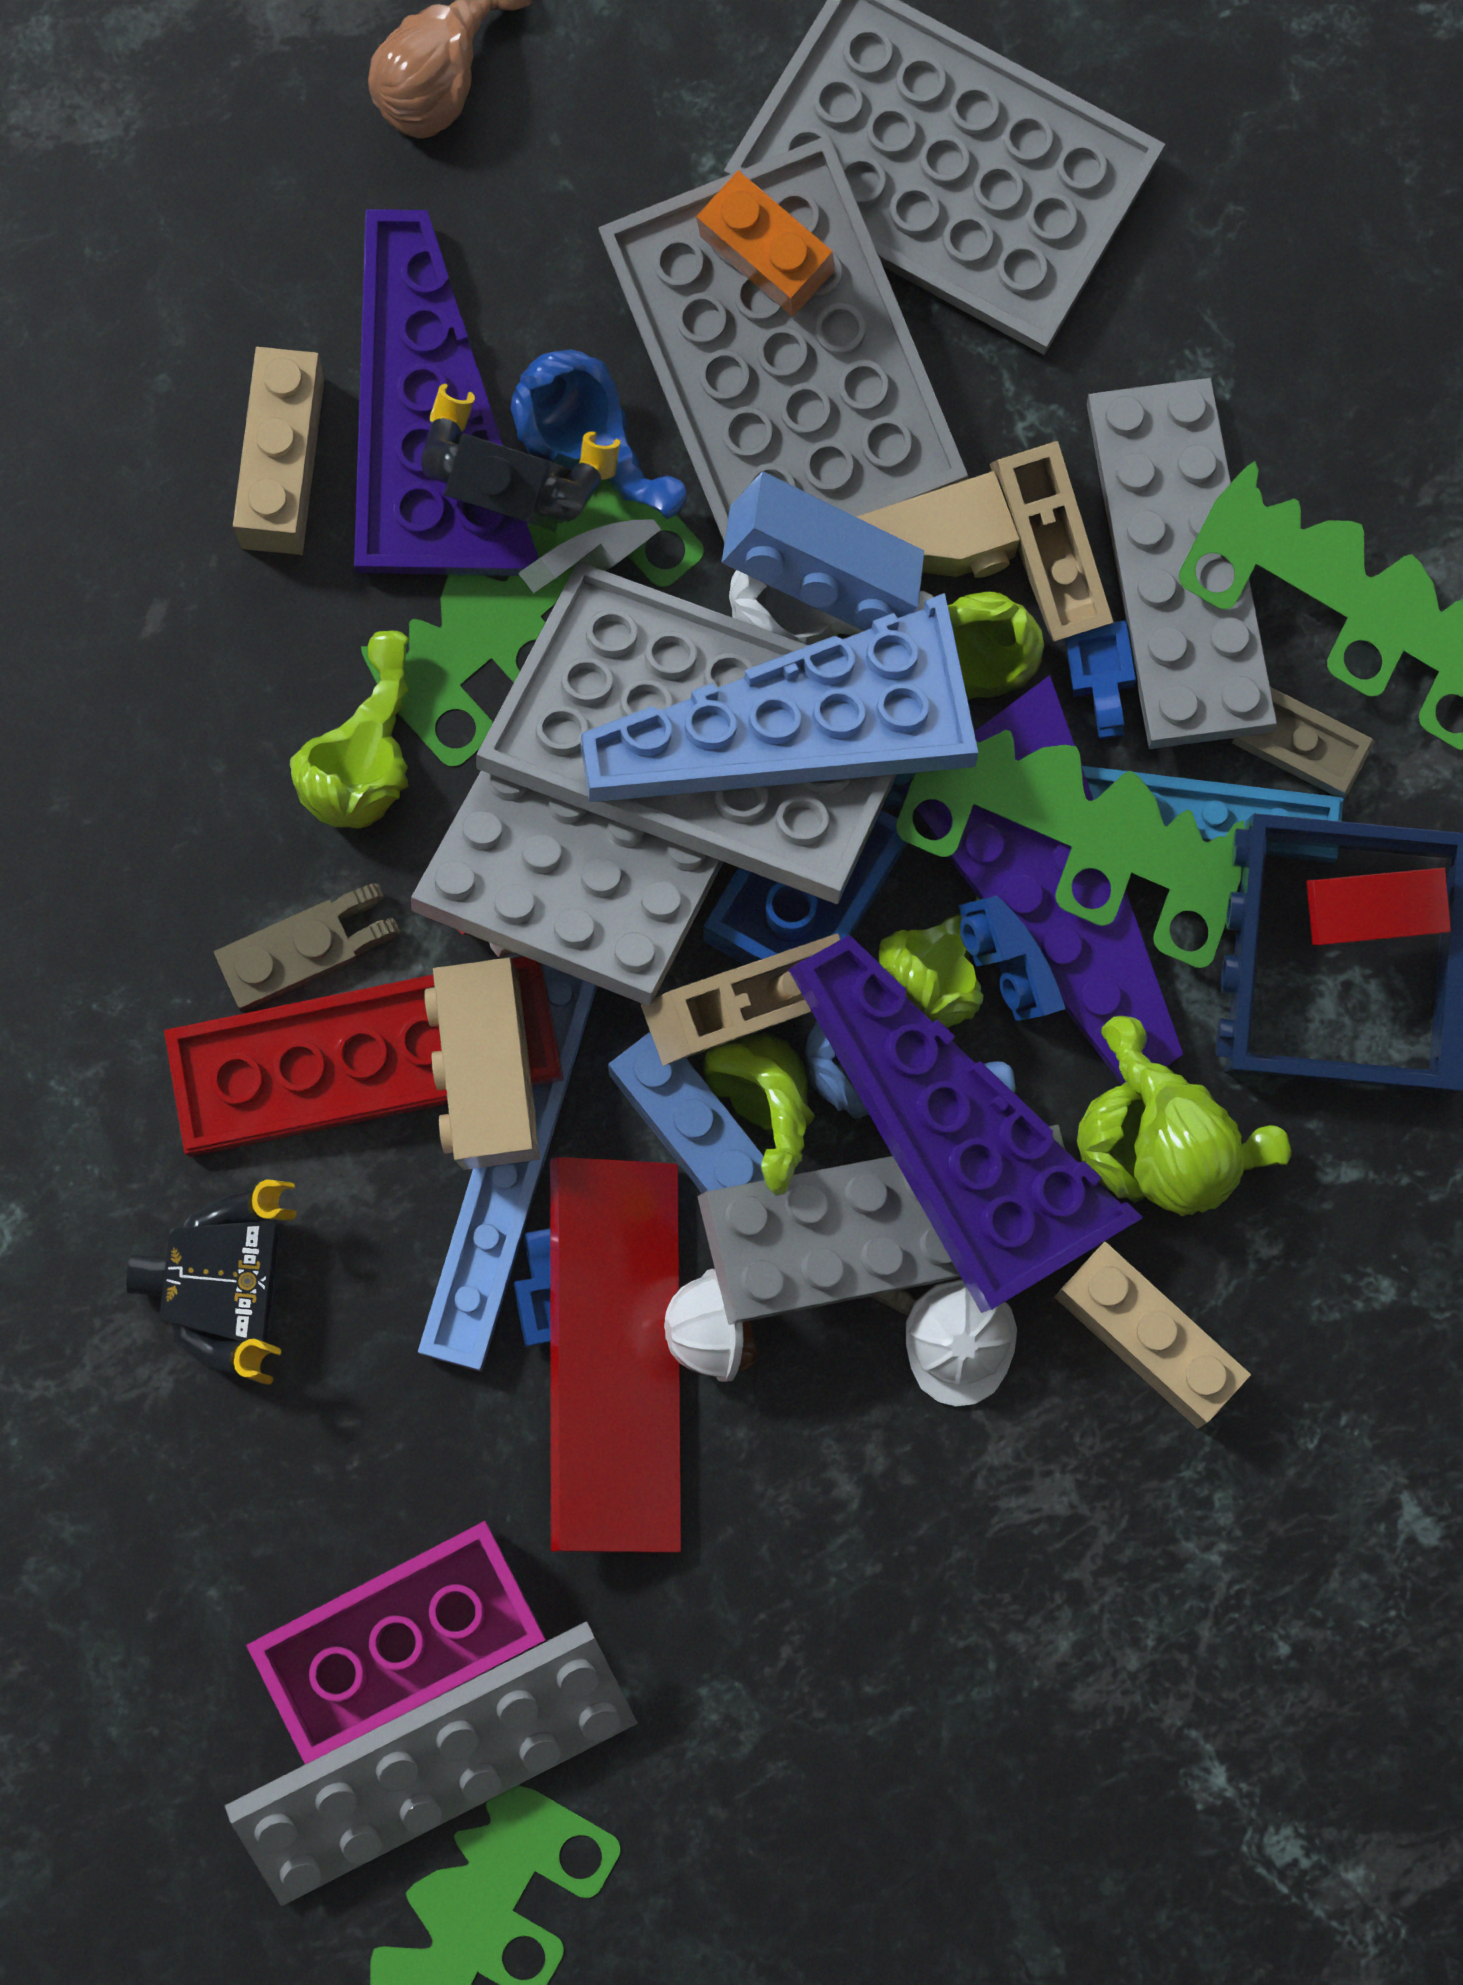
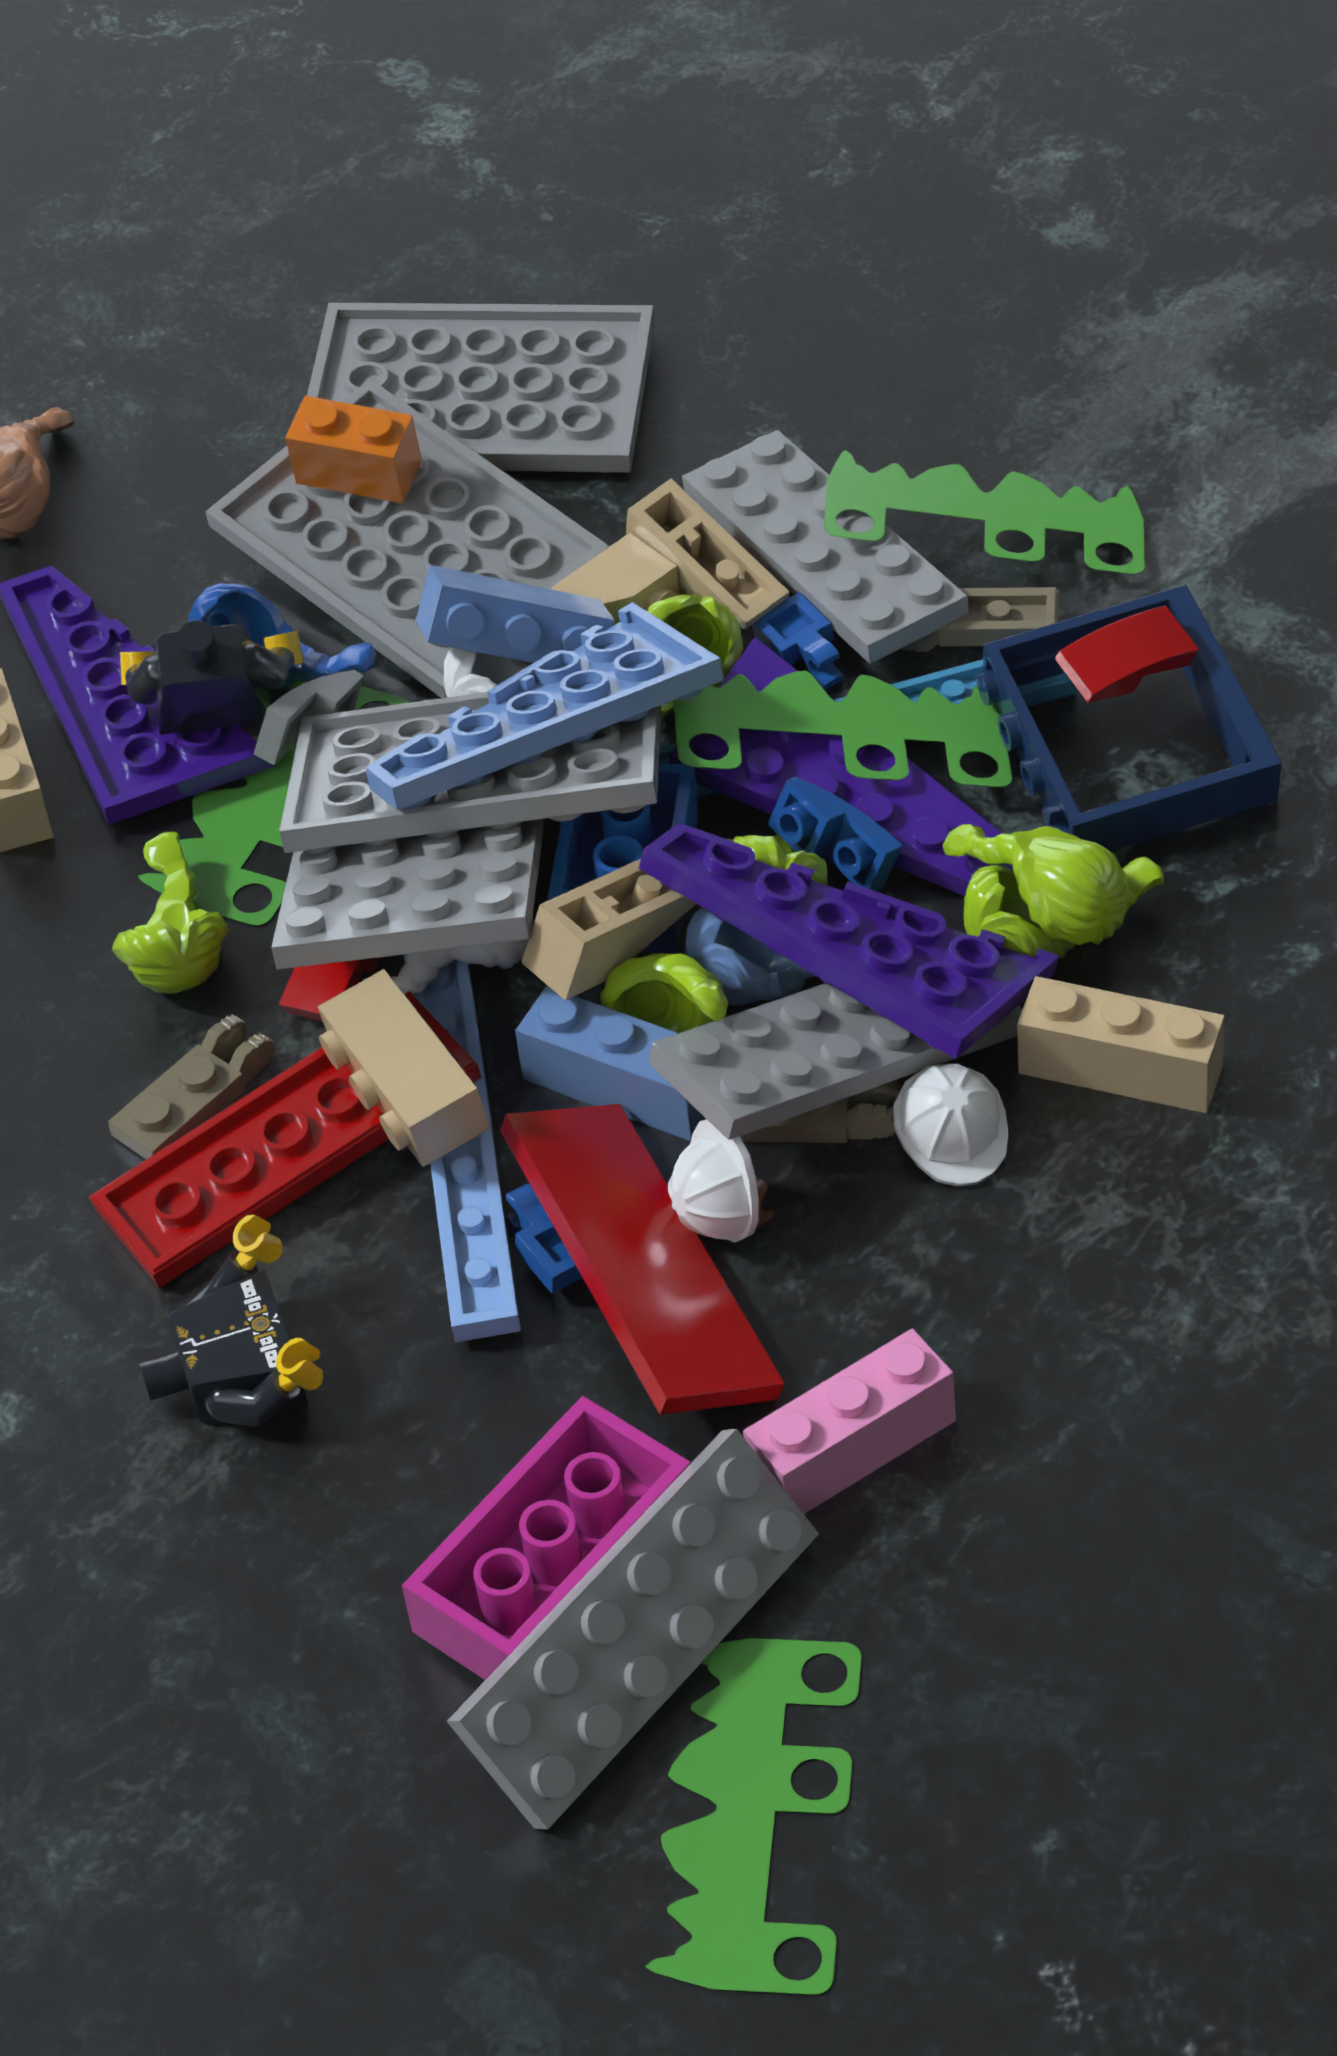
camera: 15 degrees left, 30 degrees down
(712, 1636) = (856, 1420): none -> bright pink brick

